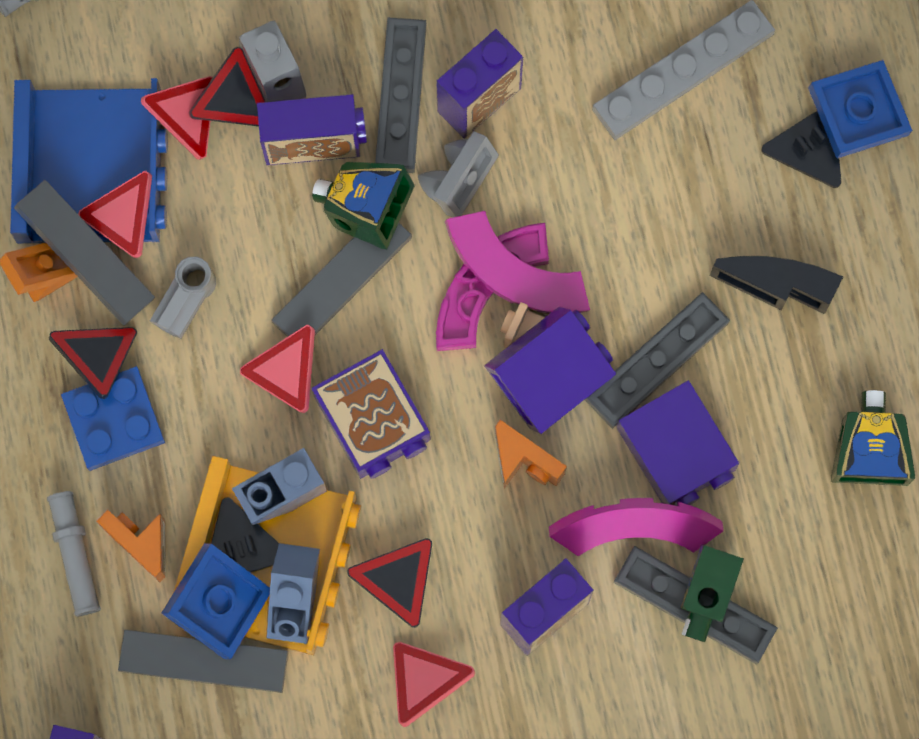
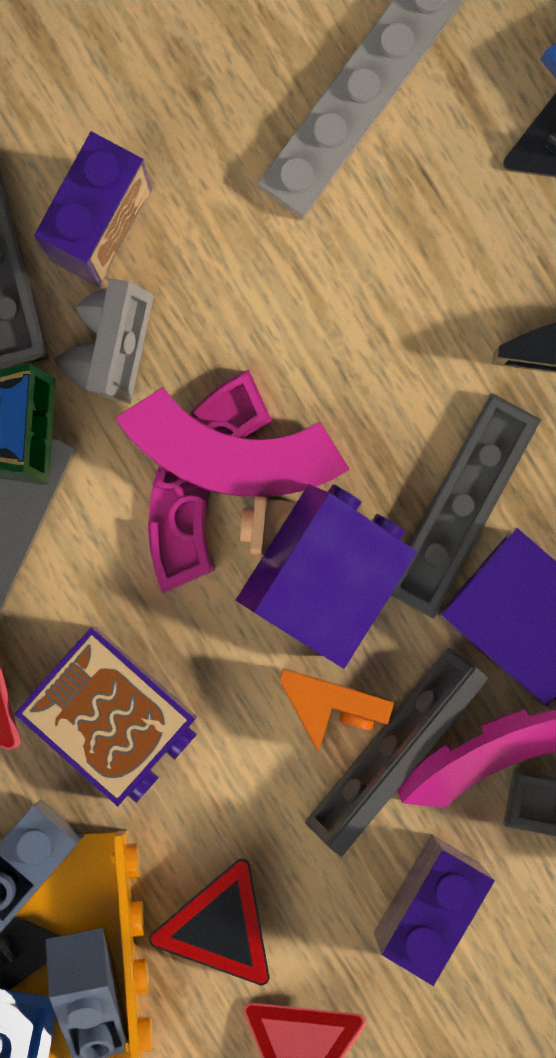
camera: 20 degrees left, 10 degrees up
(557, 503) = (395, 751): none -> dark grey tile

